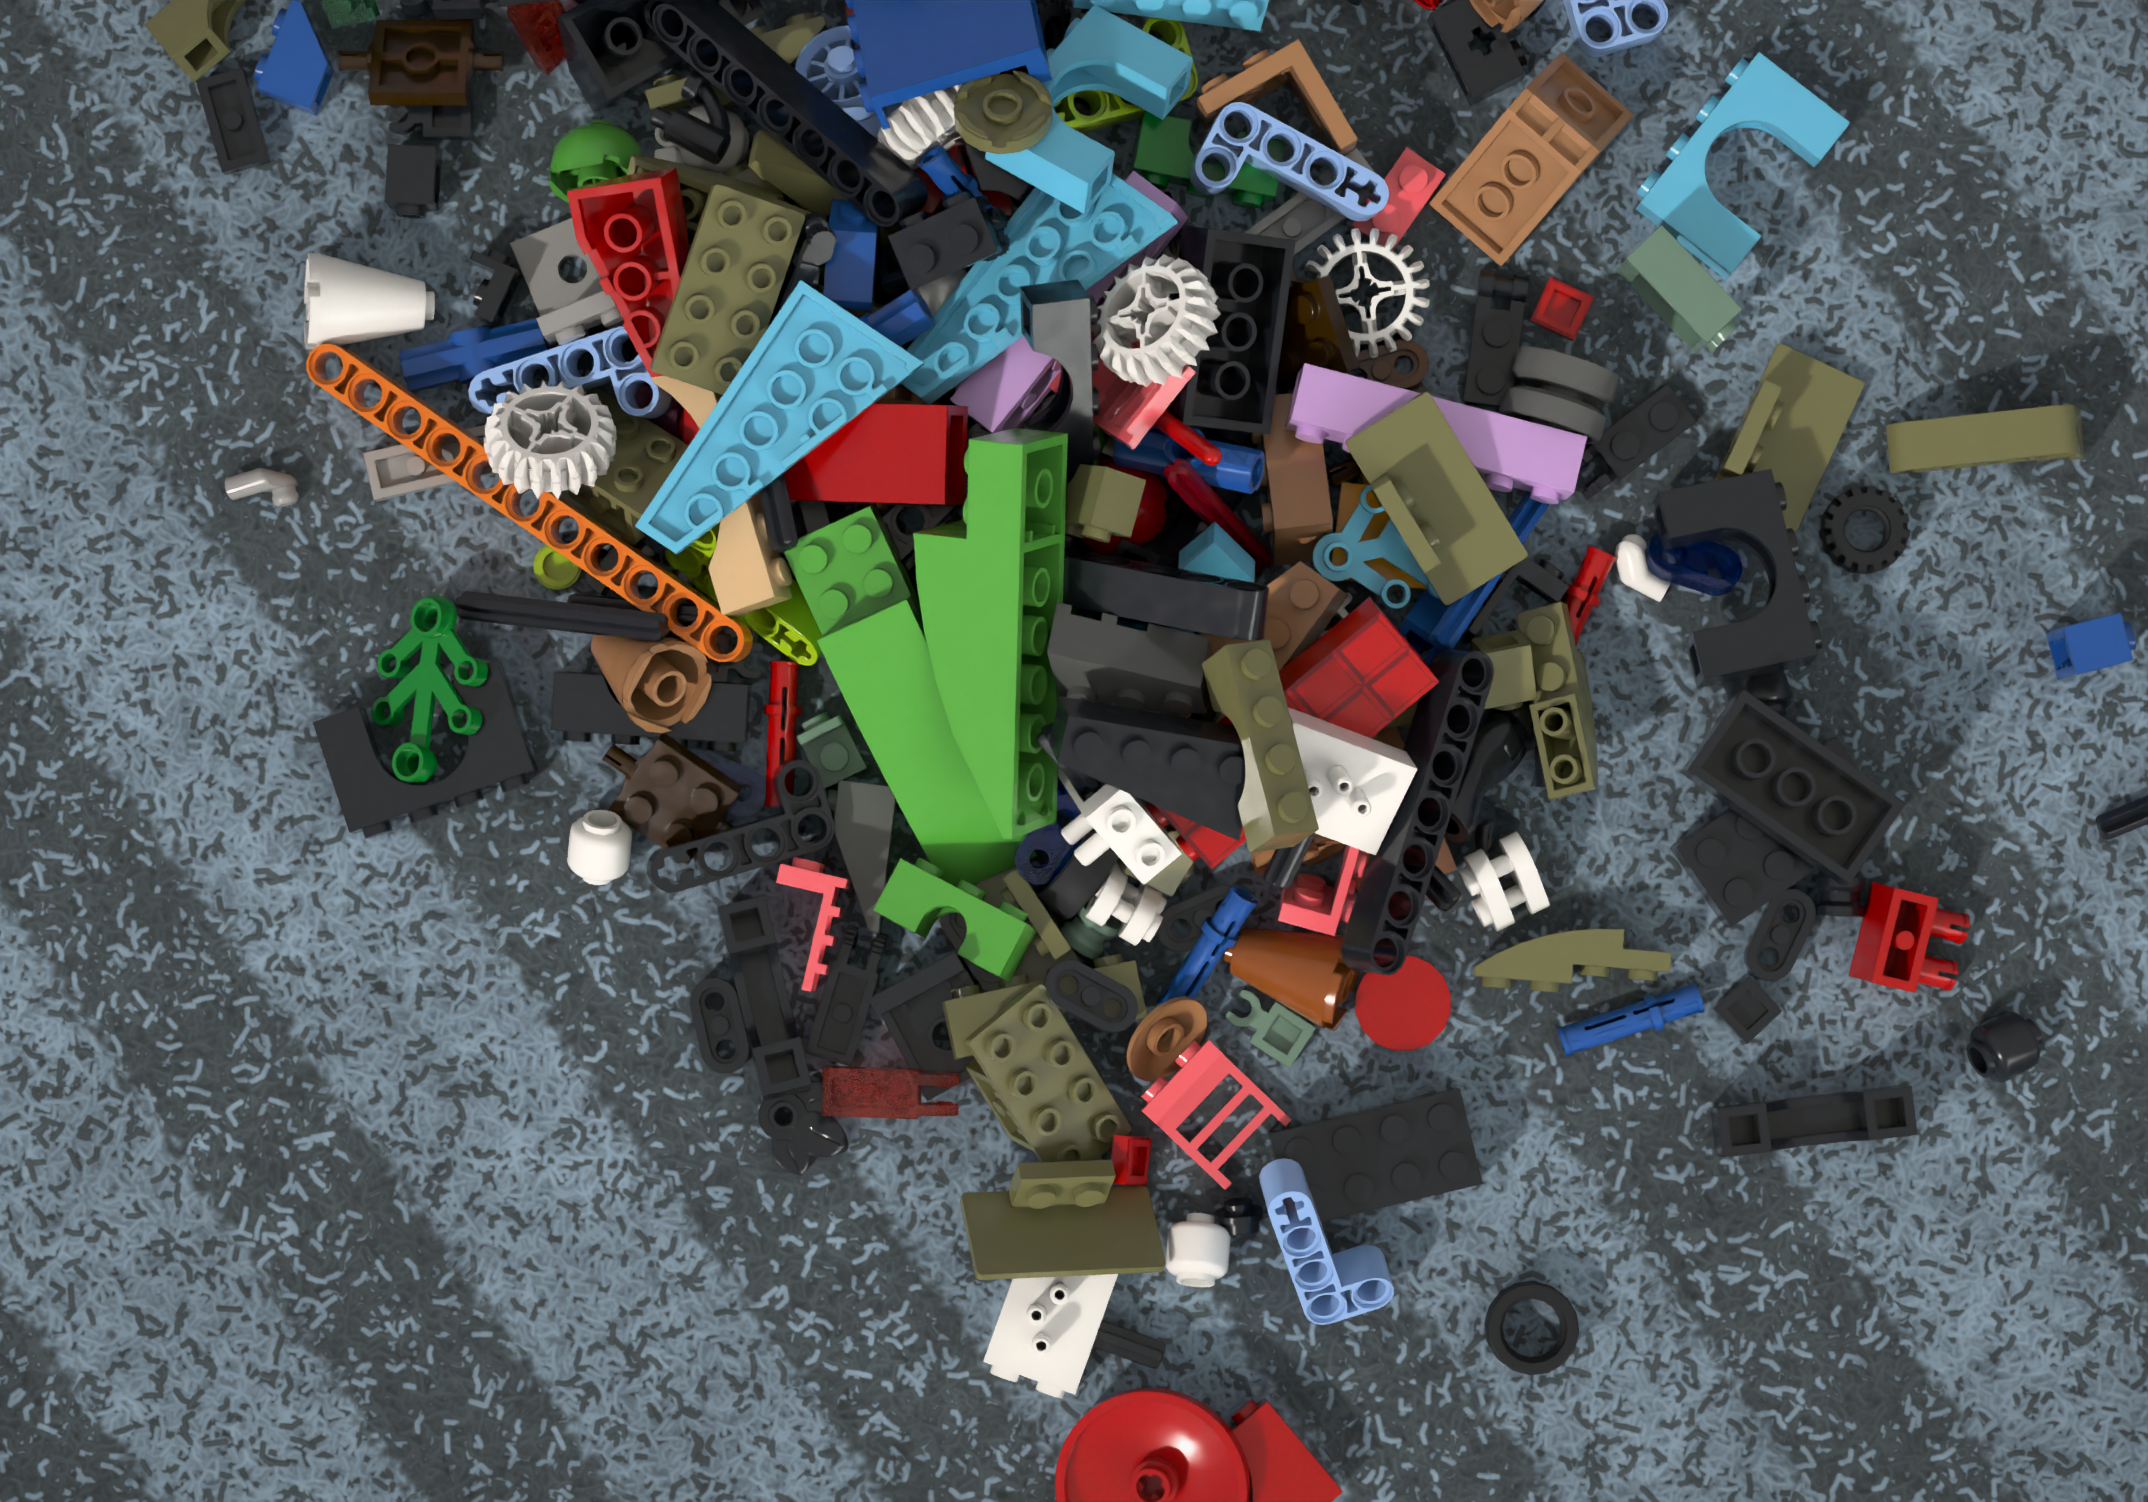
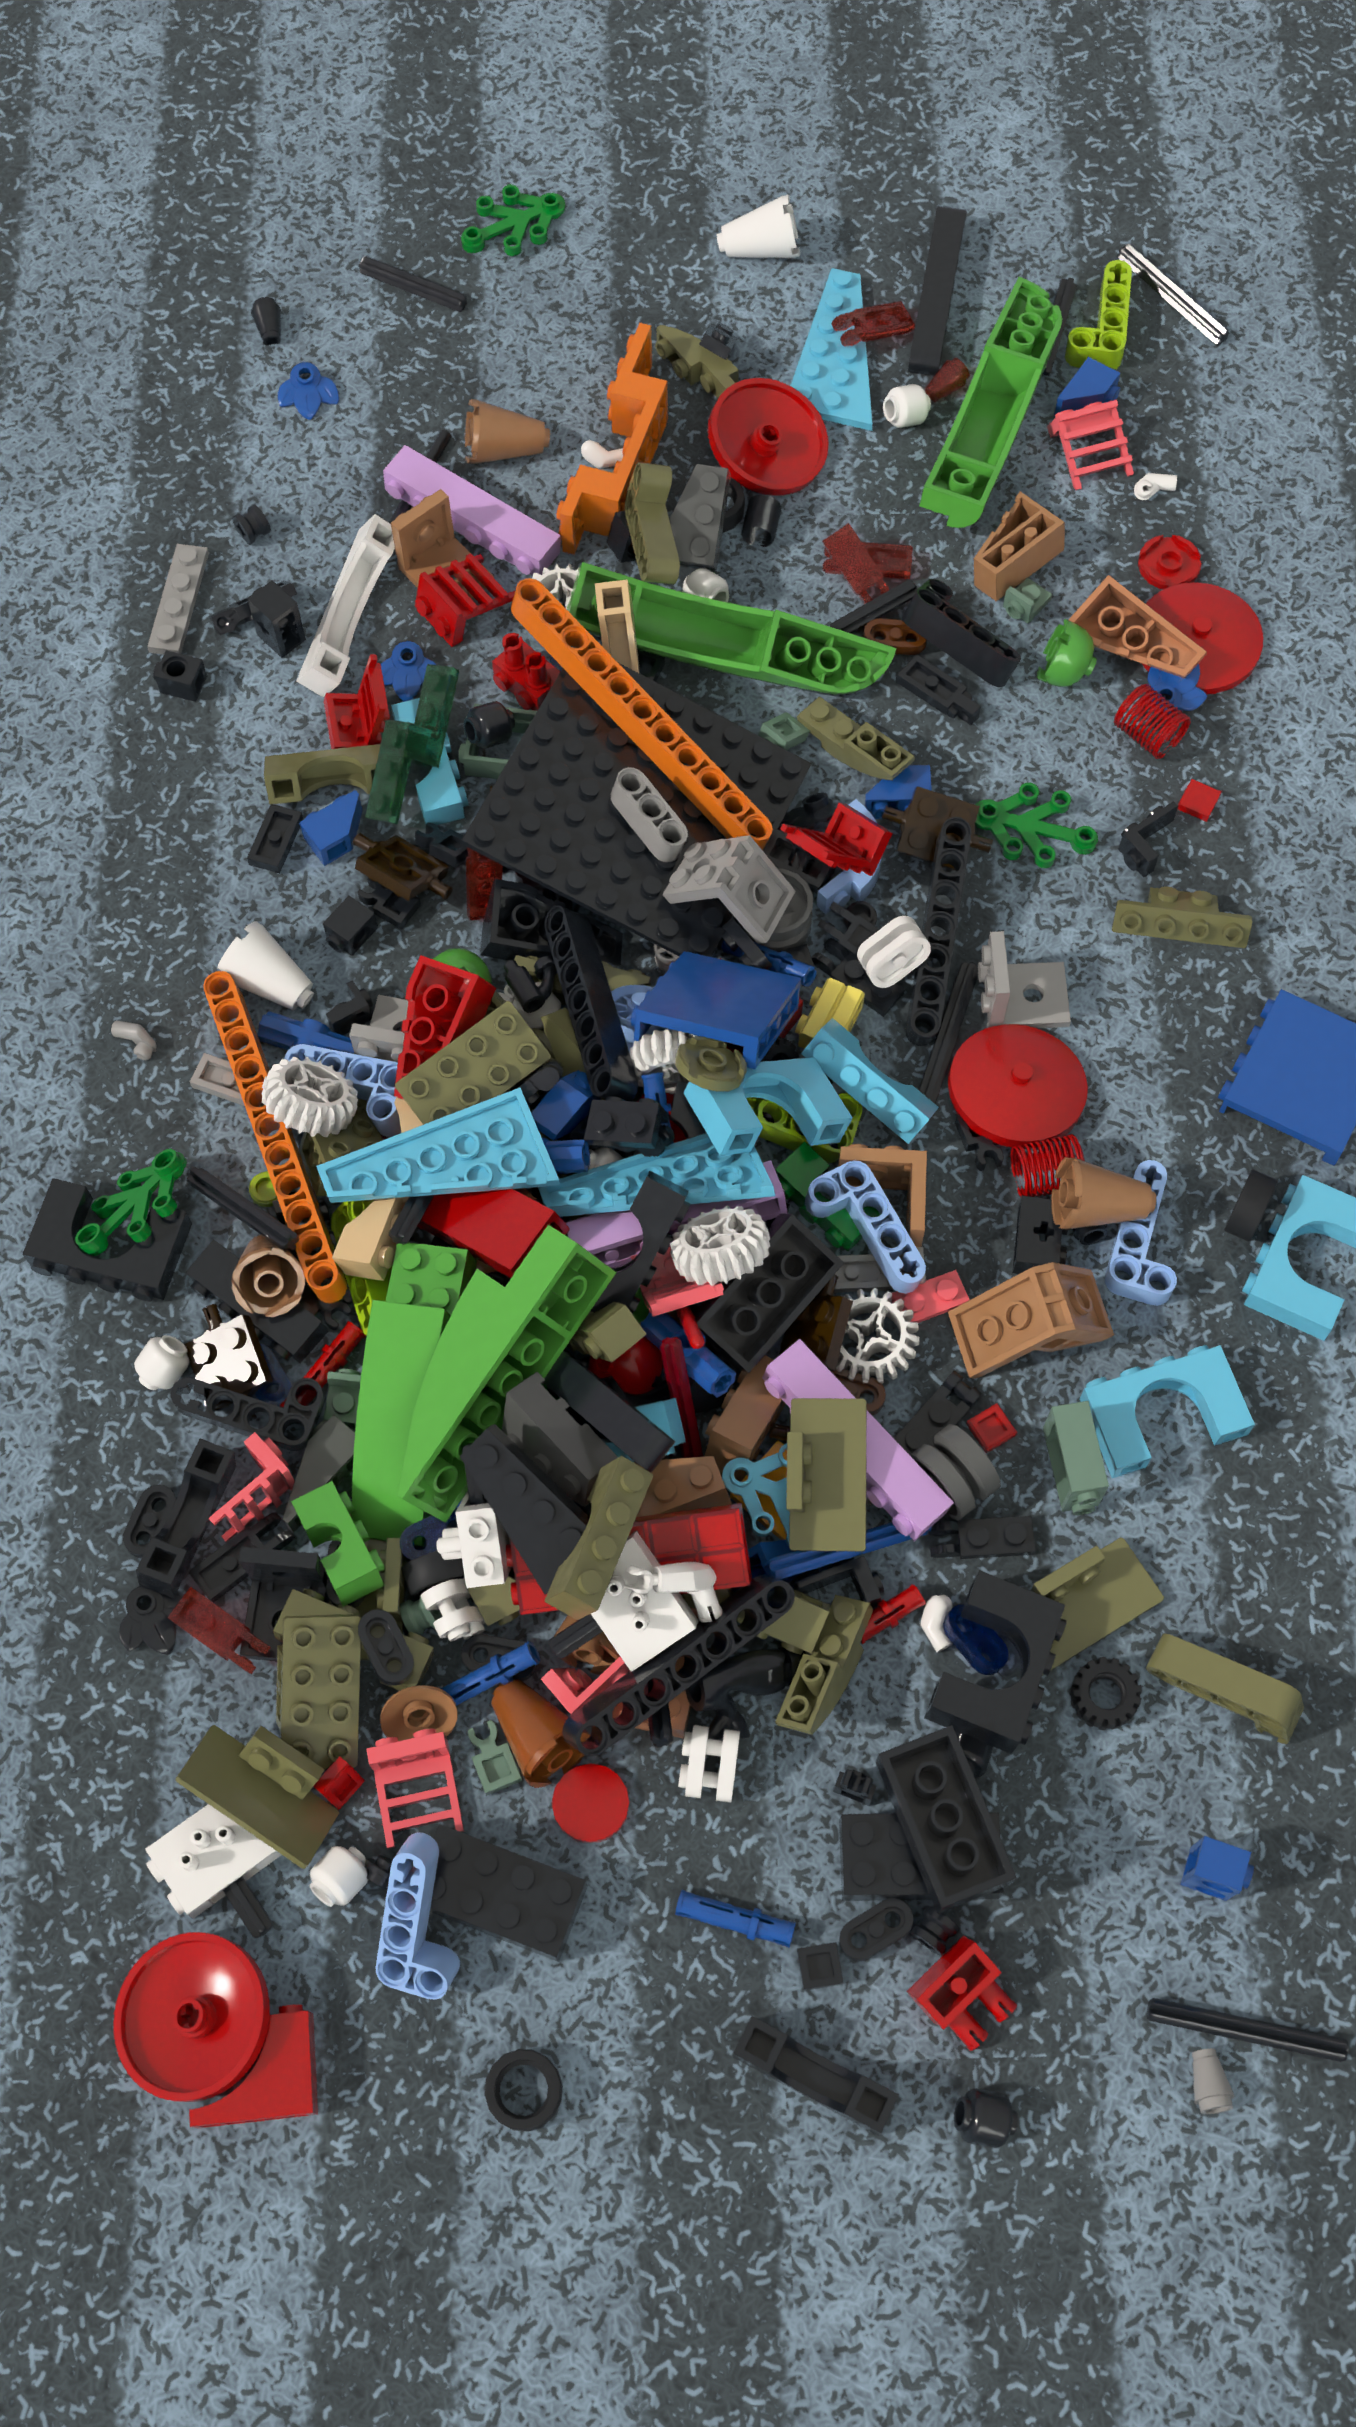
camera: 35 degrees right, 20 degrees down
(1376, 725) = (681, 1577): none -> white arm
(1551, 959) = (709, 1836): olive slope -> none
(1667, 803) = (855, 1786): none -> black plate

